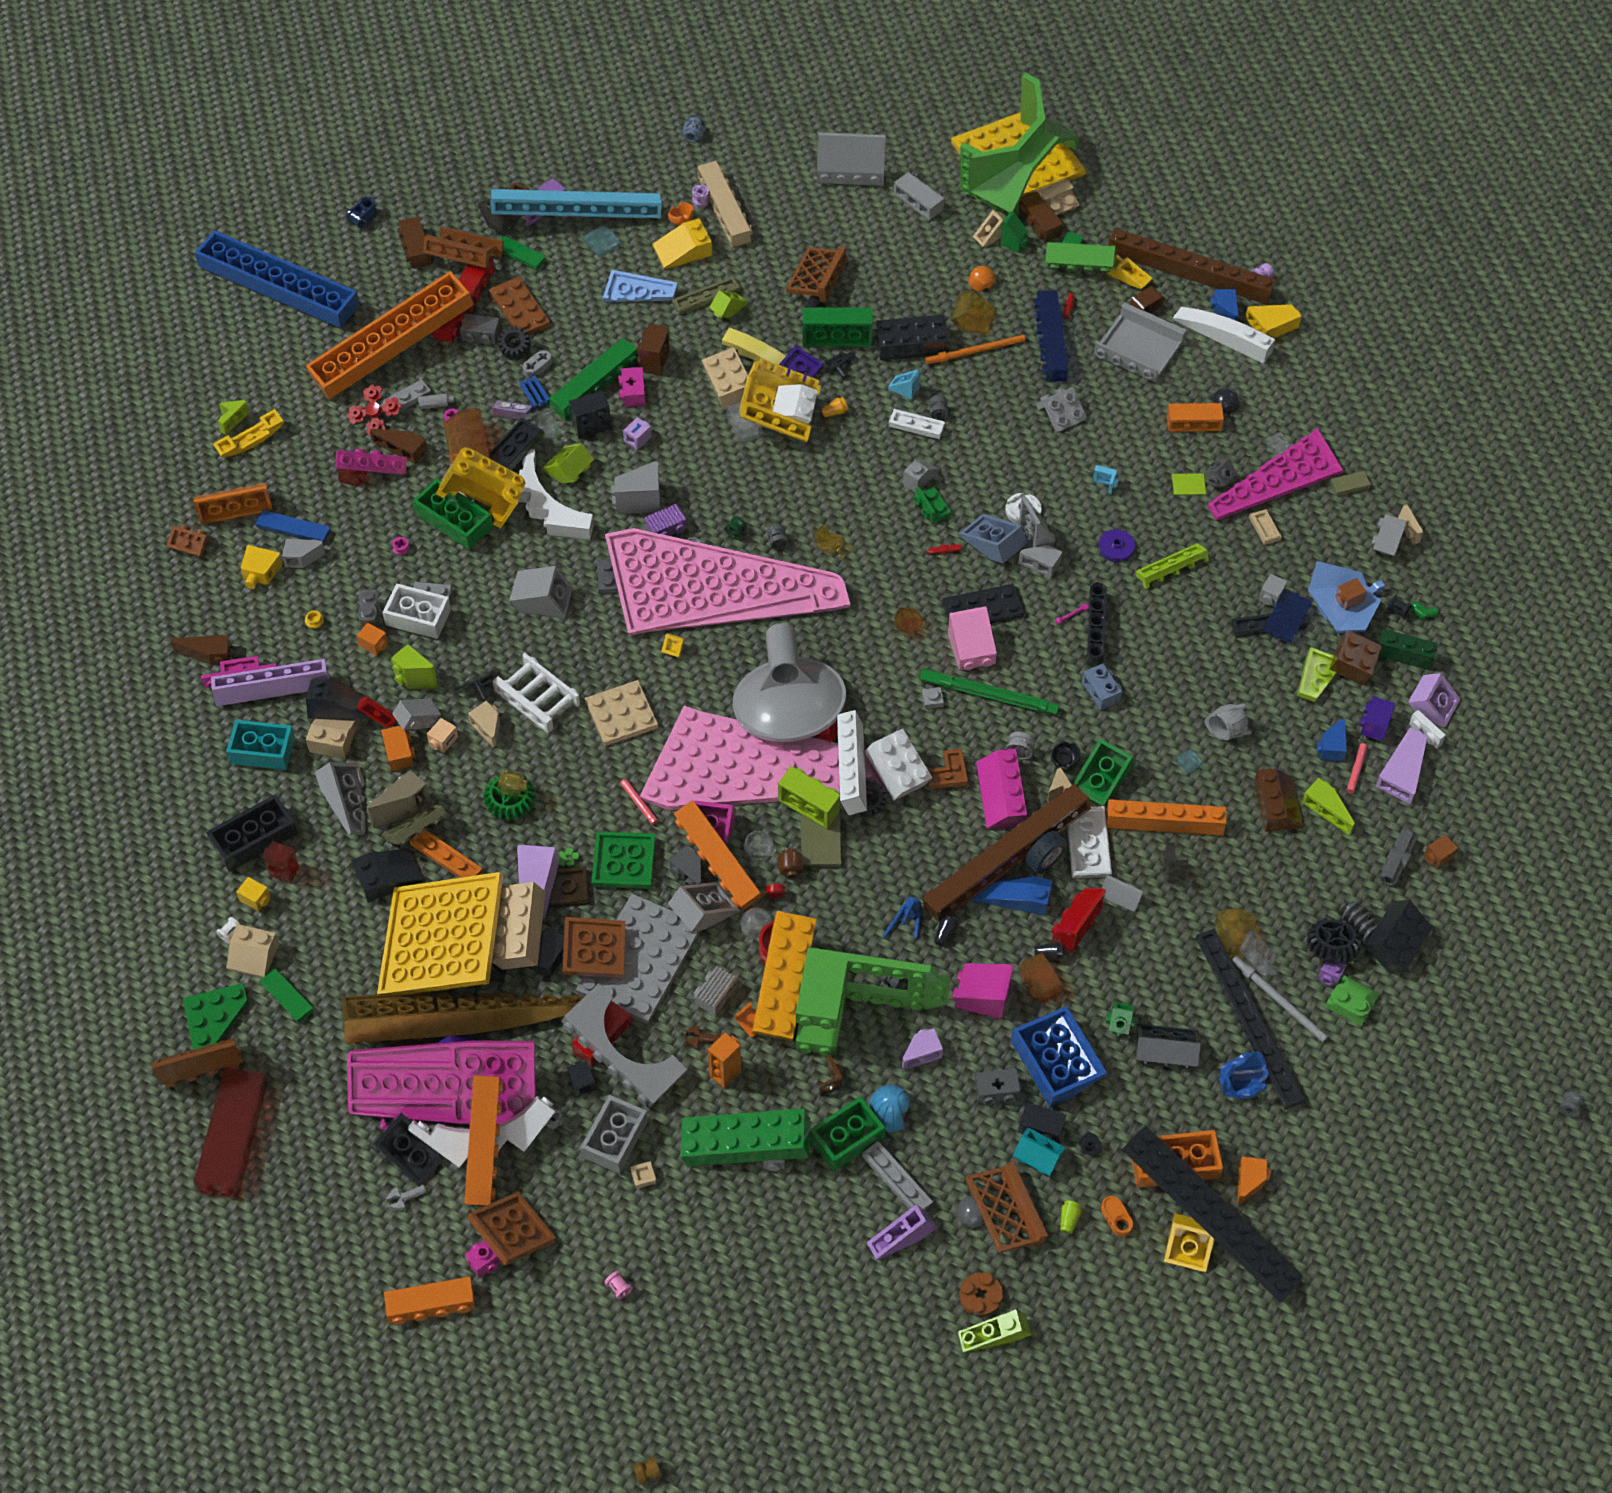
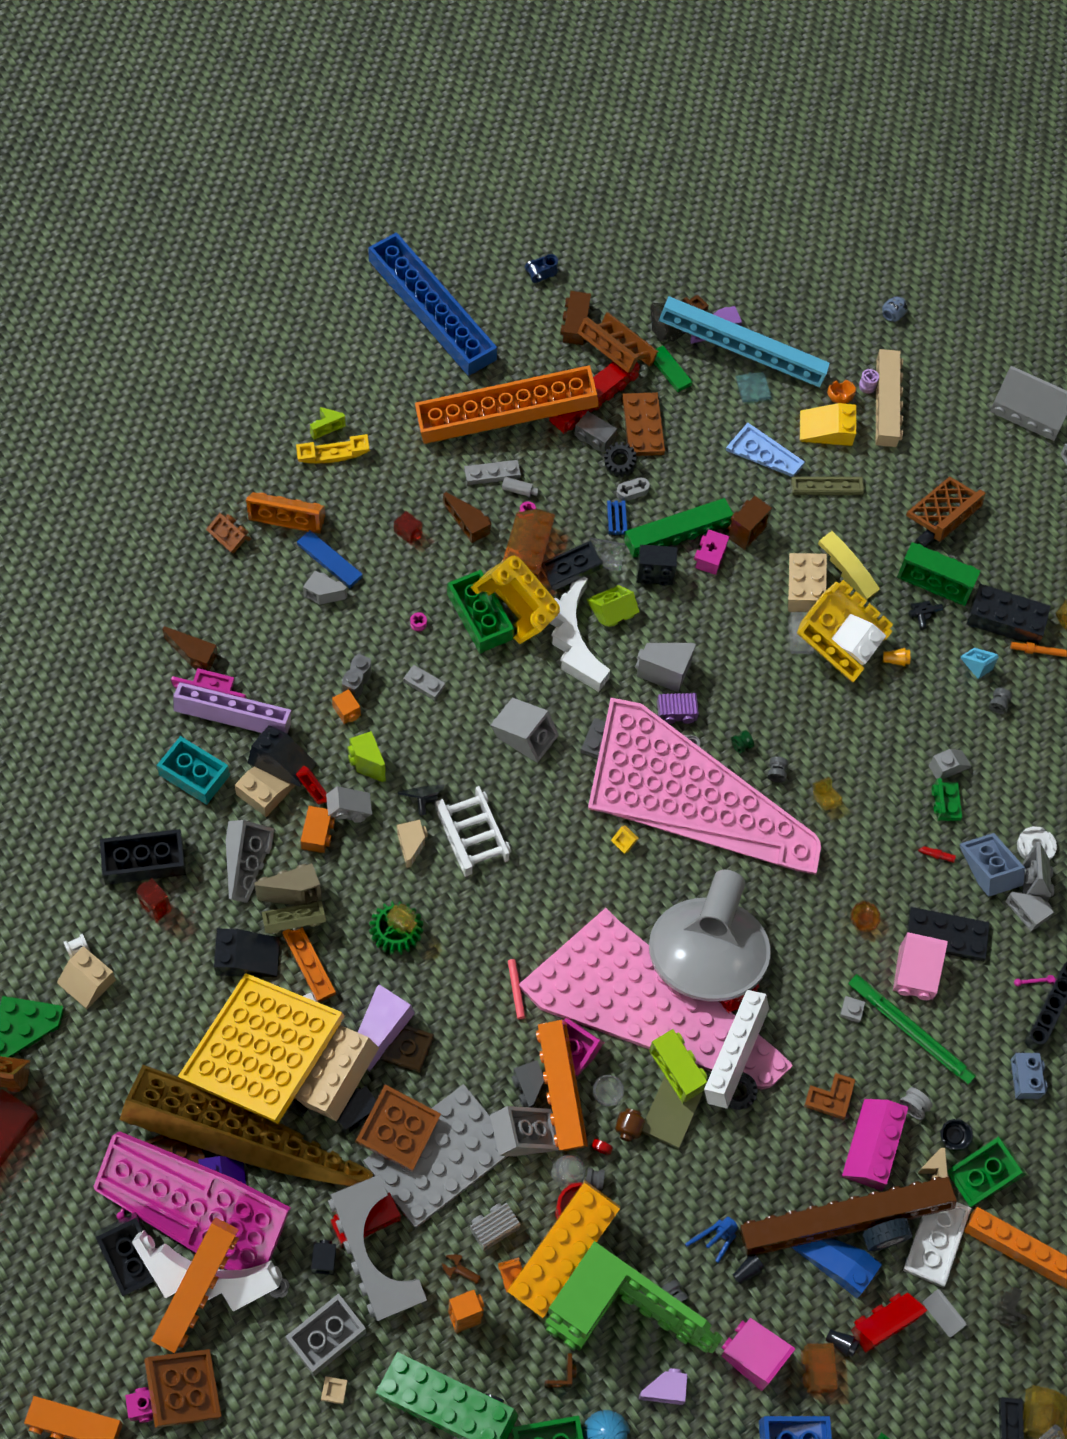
camera: 20 degrees right, 5 degrees up
(253, 894) = (114, 920): yellow brick -> none
(259, 566) = (279, 586): yellow torso -> none
(286, 996) = (96, 1037): green tile -> none
(314, 619) = (303, 662): yellow plate -> none
(371, 461) = (428, 525): dark pink bracket -> none
(373, 409) = (458, 472): red plant -> none
(403, 1197) = (104, 1300): light grey bar -> none
(416, 611) = (400, 697): white brick -> none
(442, 735) = (363, 835): light nougat brick -> none
(510, 410) = (586, 526): lavender slope -> none
(568, 857) = (421, 1017): bright green plant -> none
(621, 713) = (543, 887): tan plate -> none
(623, 860) = (472, 1044): green plate -> none
(637, 433) = (694, 602): lavender brick -> none
(727, 304) = (843, 503): lime slope -> none
(802, 362) = (884, 597): dark purple tile -> none
(898, 764) = (783, 1070): white brick -> none
(916, 424) = (971, 708): white plate -> none

